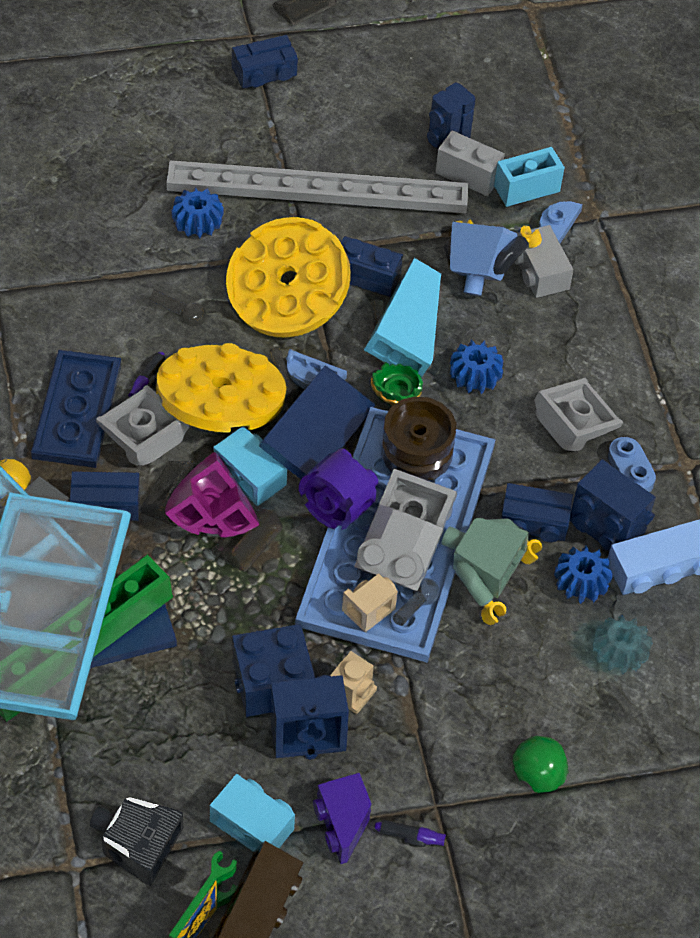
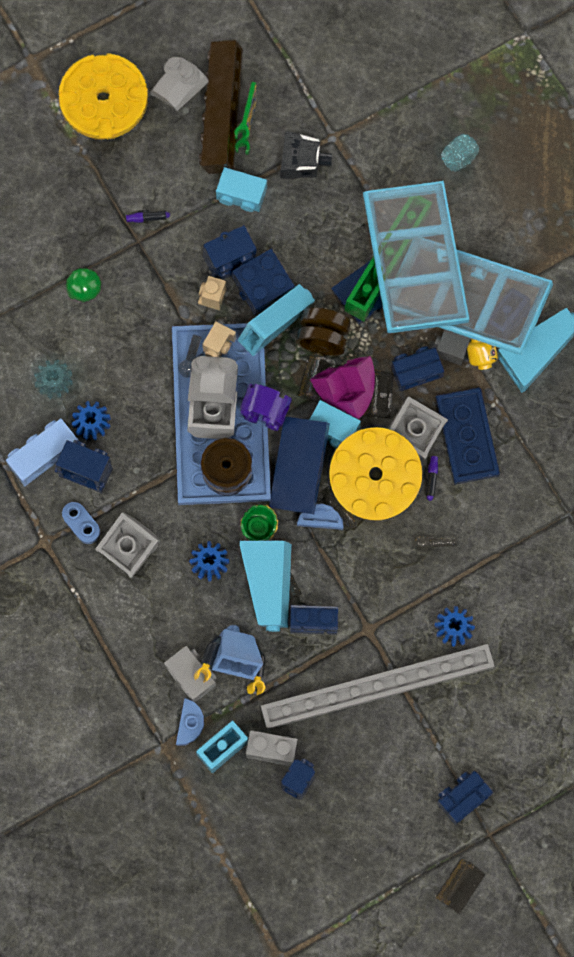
camera: 165 degrees right, 20 degrees up
(216, 566) = (323, 331): none -> dark brown wheel
(278, 597) = (275, 319): none -> medium azure slope
(313, 294) = (356, 600): yellow plate -> none
(345, 811) = (188, 211): dark purple slope -> none
(487, 559) = (153, 402): sand green torso -> none
(538, 511) = (134, 456): dark blue brick -> none

